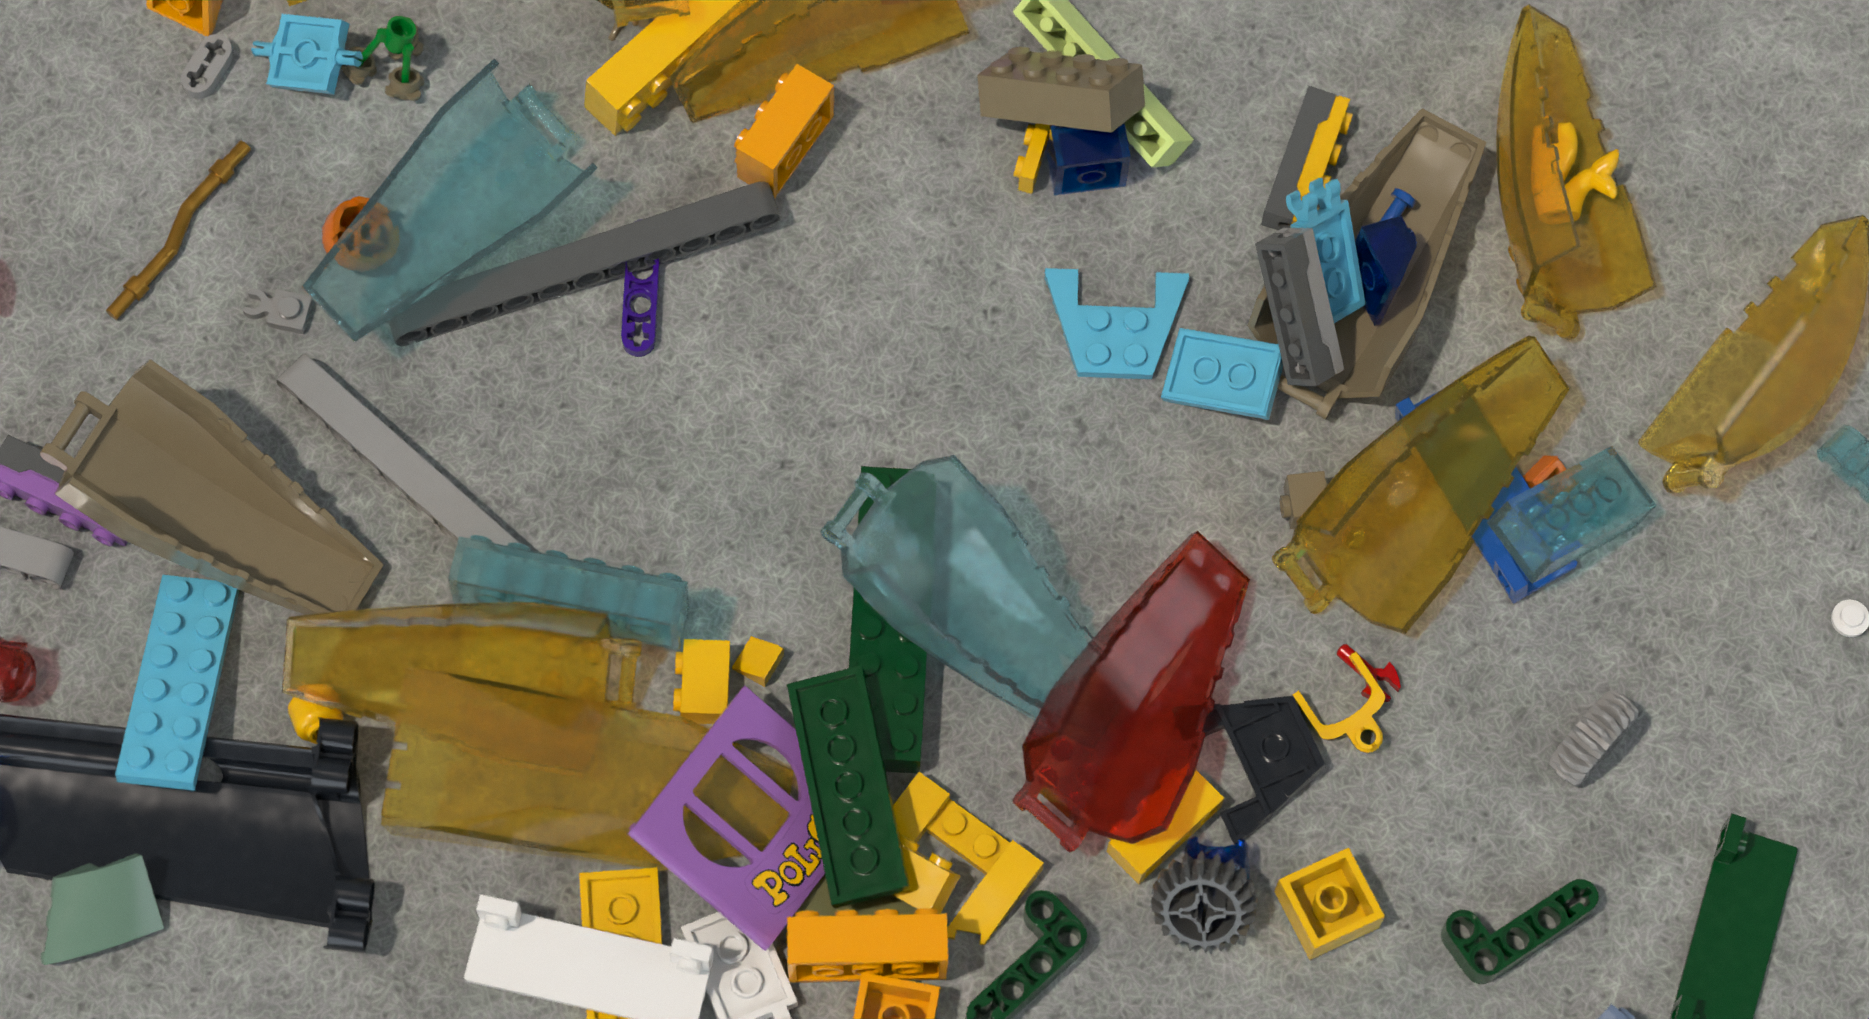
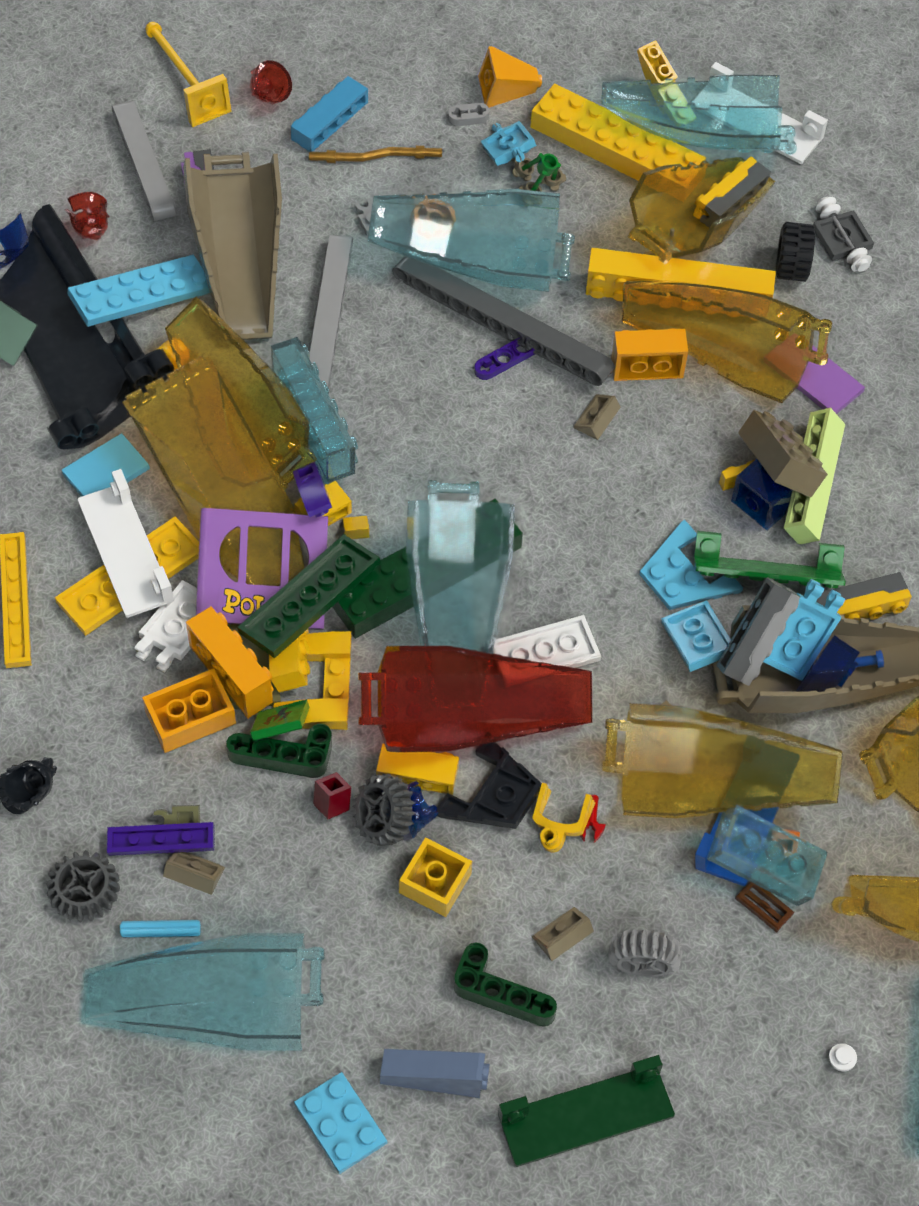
camera: 55 degrees right, 10 degrees down
(64, 241) = (329, 114): none -> dark azure brick
(428, 913) = (95, 469): none -> medium azure tile
(692, 677) = (312, 490): none -> dark purple slope
(812, 256) = (598, 415): none -> dark tan slope
(990, 941) = (280, 720): none -> green tile
(1109, 554) = (560, 643): none -> white plate
(1134, 949) = (332, 795): none -> dark red brick
(1185, 236) = (826, 572): none -> green bracket
(1490, 809) = (563, 933): none -> dark tan slope
(1618, 575) = (761, 914): none -> reddish brown tile

